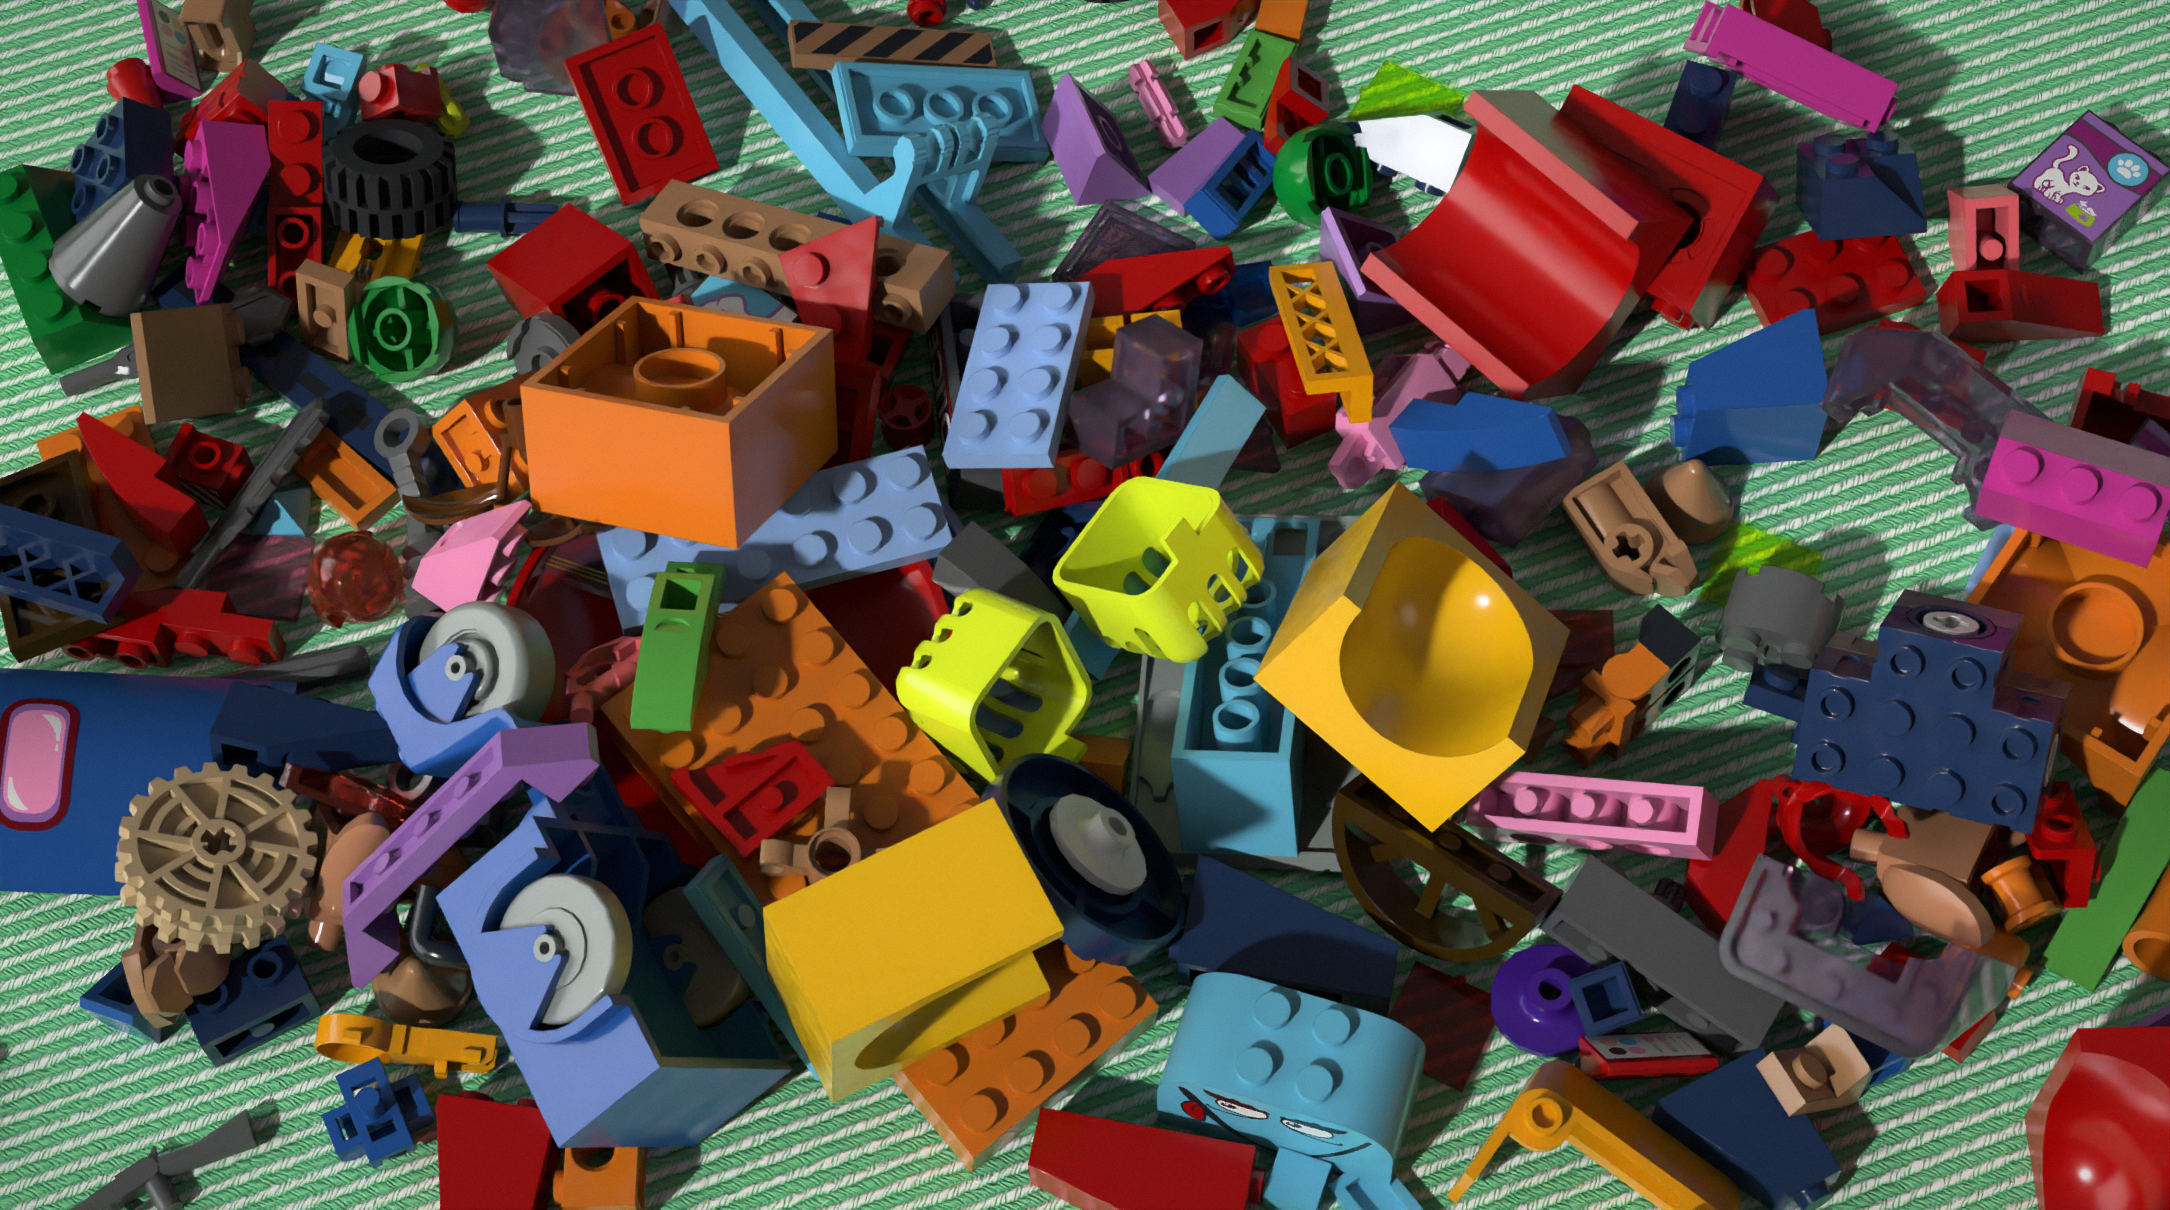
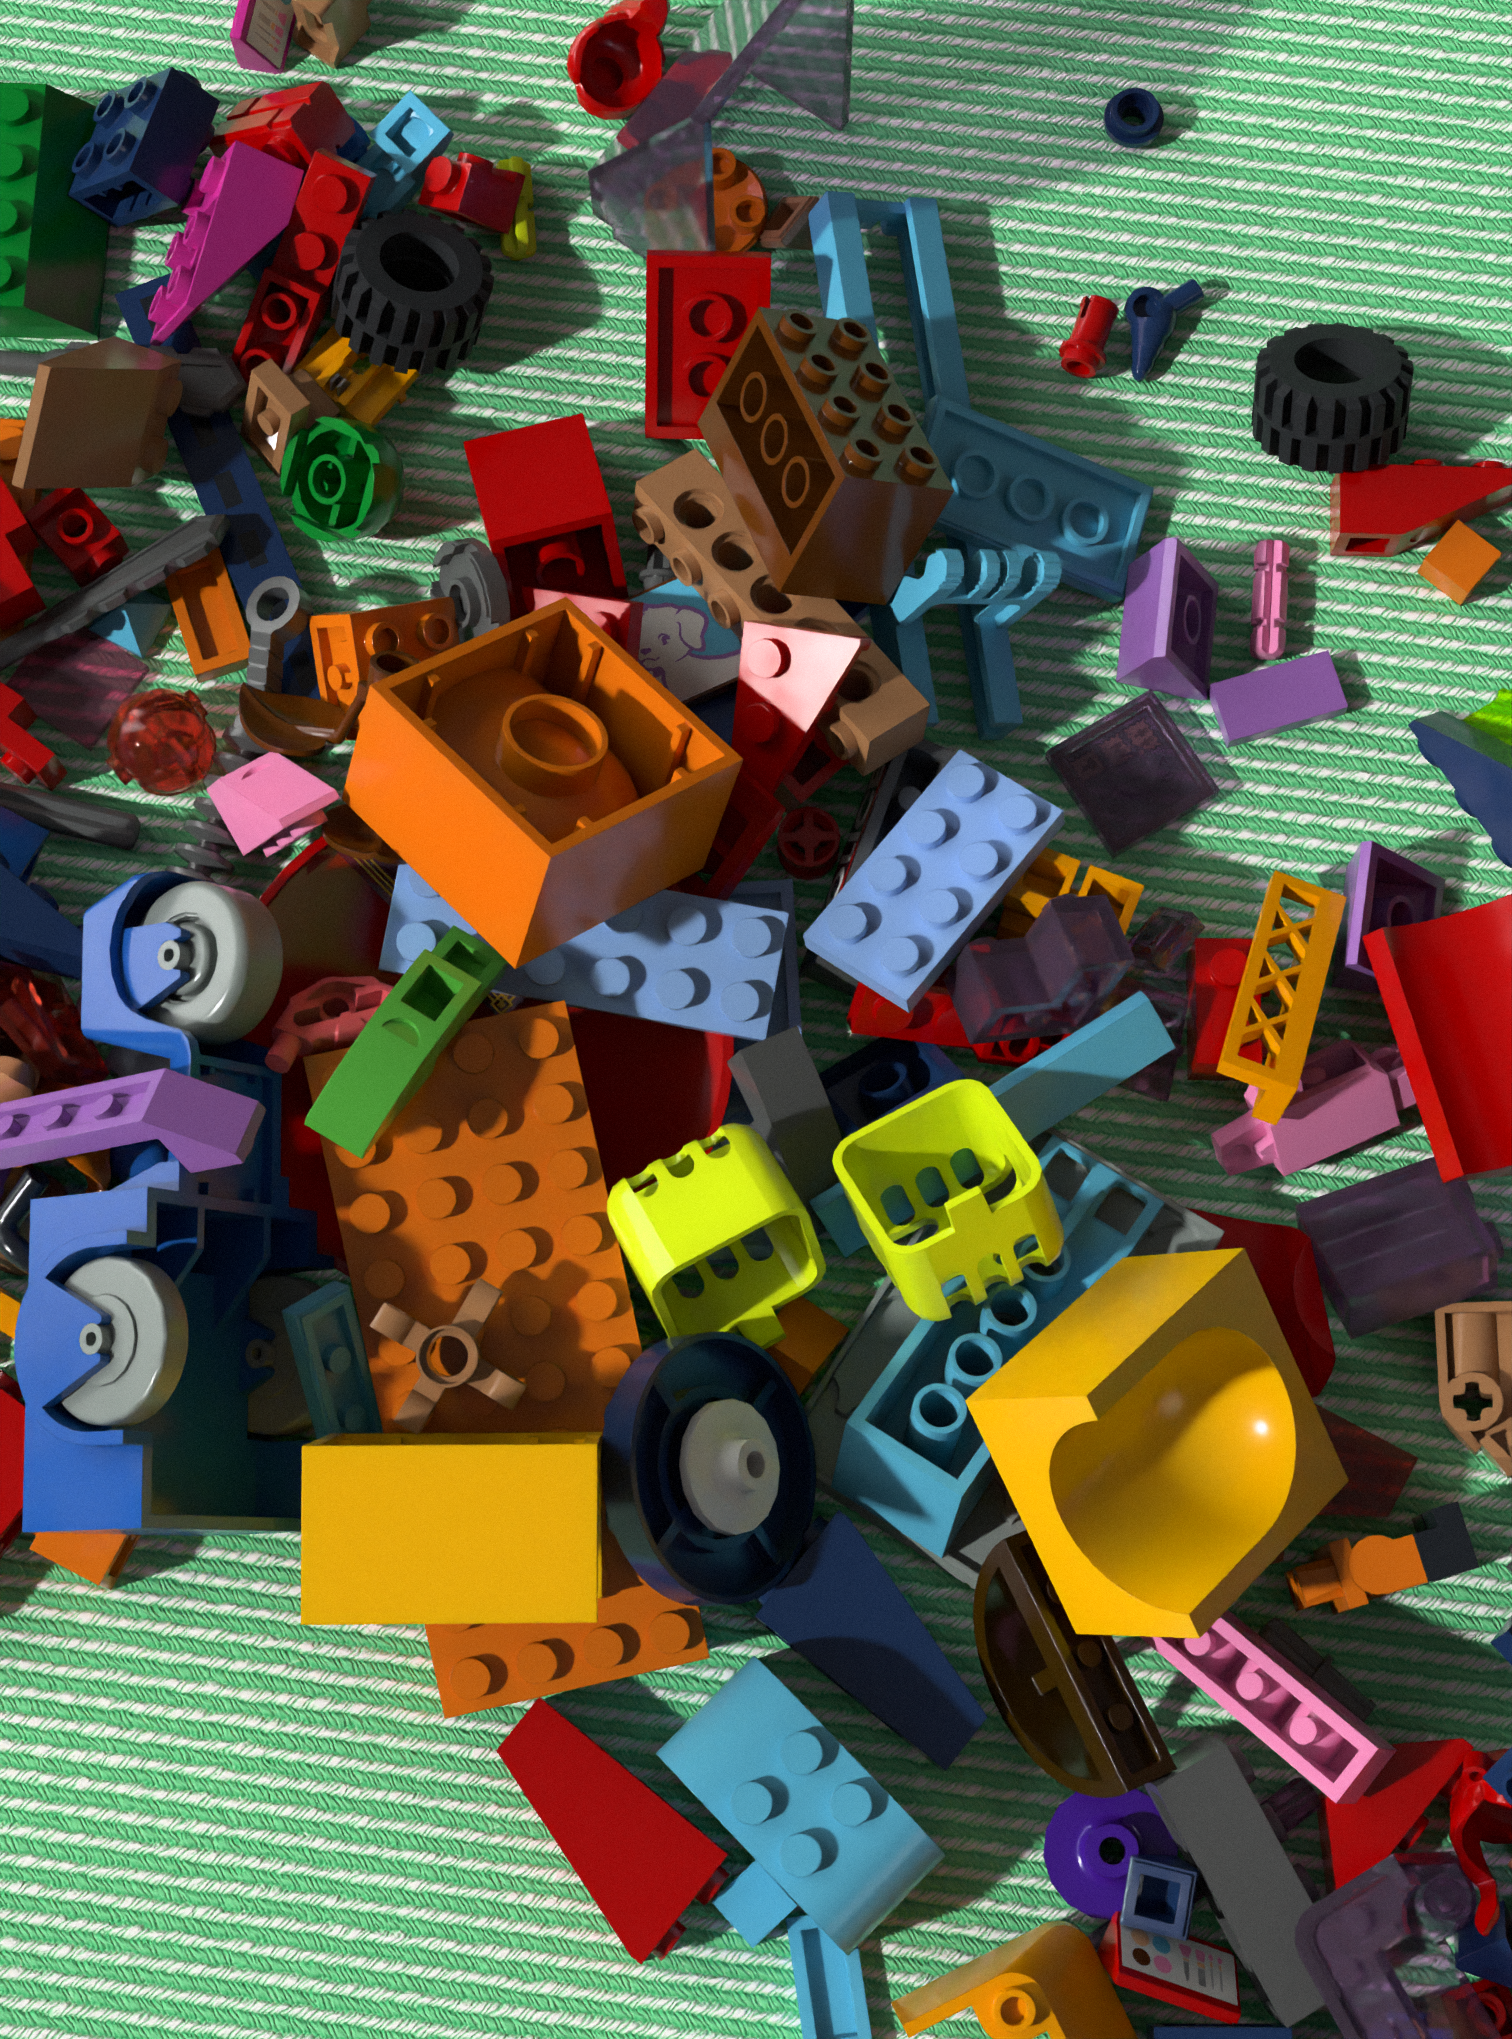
camera: 25 degrees right, 15 degrees up
(119, 247) = (91, 241): dark grey cone -> none
(135, 81) = (209, 45): red cone -> none
(500, 217) = (512, 387): dark blue axle -> none
(755, 794) = (407, 1242): red wing -> none
(775, 129) = (823, 457): none -> reddish brown brick
(823, 43) = (1011, 392): medium nougat tile -> none
(1158, 281) = (1130, 832): red slope -> none
(1214, 205) = (1262, 755): blue slope -> none
(1240, 302) = (1209, 875): clear blue slope -> none
(1252, 78) = (1390, 624): bright green plate -> none
(1296, 102) = (1411, 683): red slope -> none
(1321, 170) = (1393, 788): green cylinder -> none
(1449, 1020) = (988, 1807): clear red piece -> none
(1478, 434) = (1378, 1200): blue slope -> none

